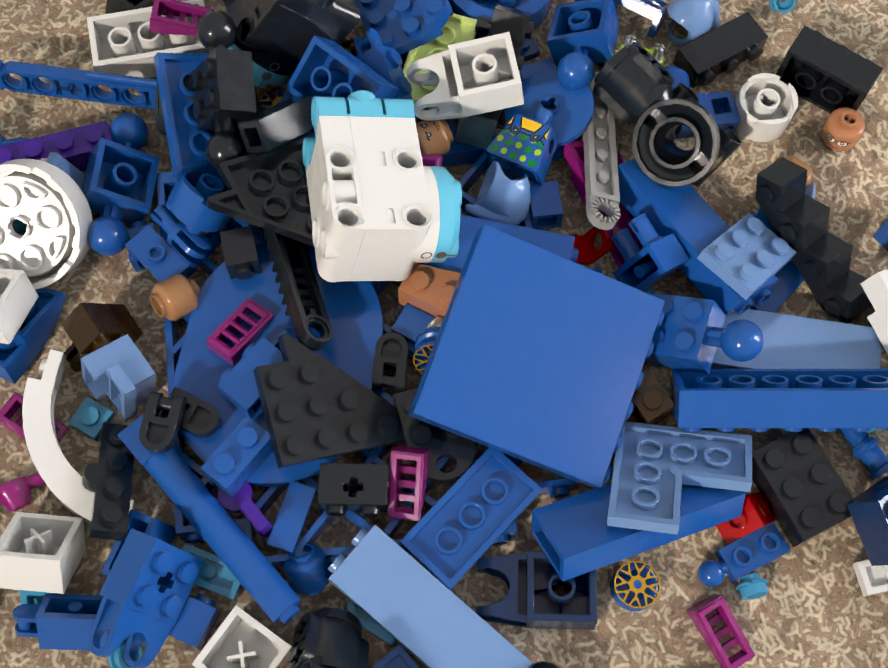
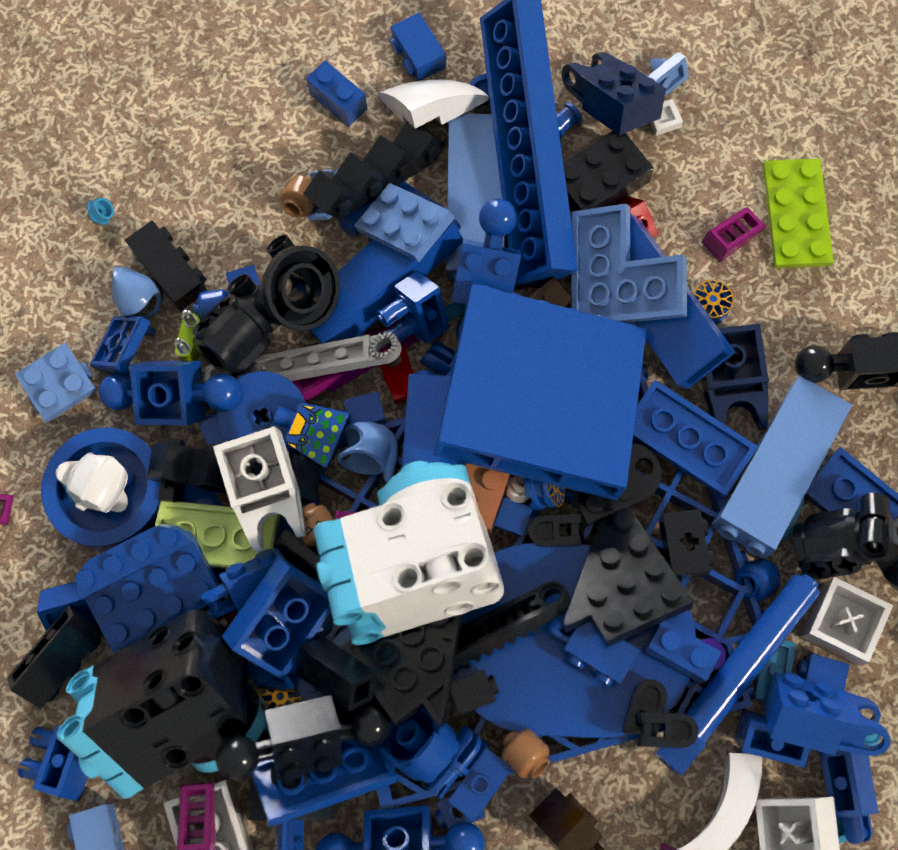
camera: 90 degrees left, 5 degrees up
(90, 418) = (649, 822): dark azure plate -> none
(112, 485) = (718, 777): black hinge -> none
(119, 373) = (609, 794): medium blue plate -> none
(234, 354) = (568, 673): magenta slope -> none
(255, 517) = (730, 628): dark purple tile -> none
(291, 517) = (720, 598): blue piece -> none
(396, 468) = (650, 496): magenta slope -> none
(724, 109) = (236, 254): blue brick -> none
(744, 556) = (669, 219): blue plate -> none
(752, 586) = (692, 210): dark azure plate -> none
(765, 107) = (231, 221): white brick -> none
(827, 72) = (190, 164): black brick -> none
(842, 129) = (245, 151): nougat head -> none

